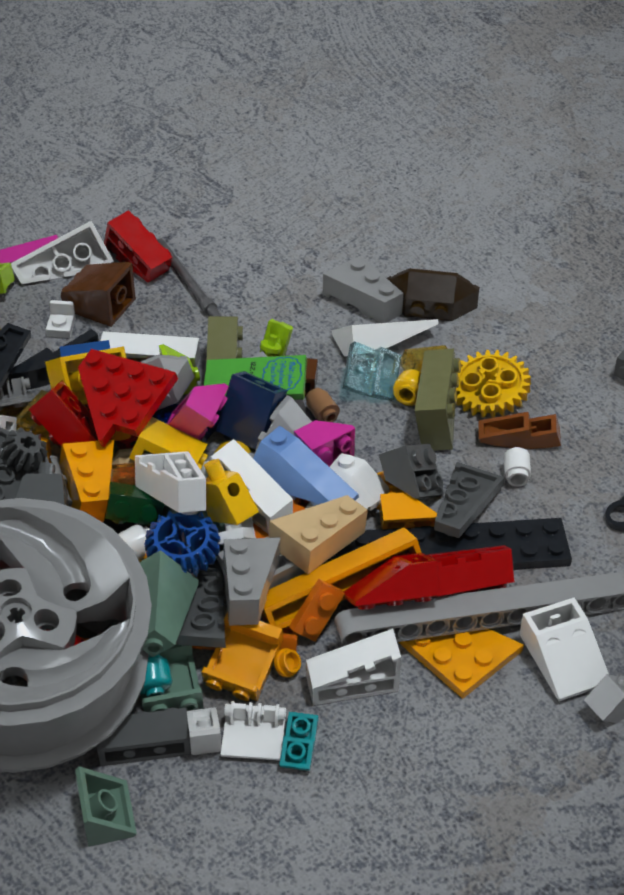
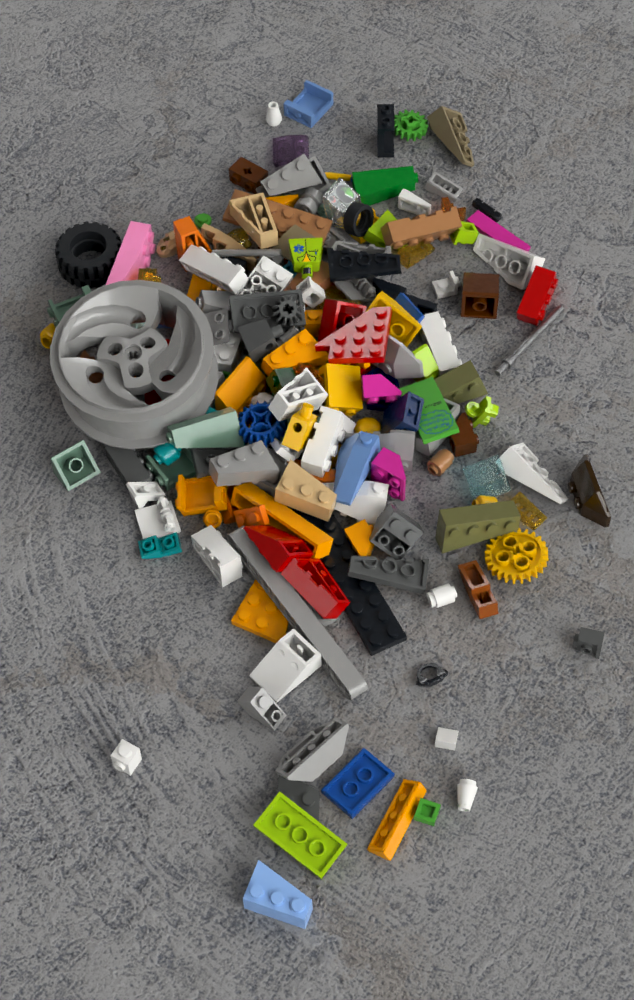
camera: 70 degrees right, 10 degrees up
(364, 288) = (576, 440): light grey wedge -> none

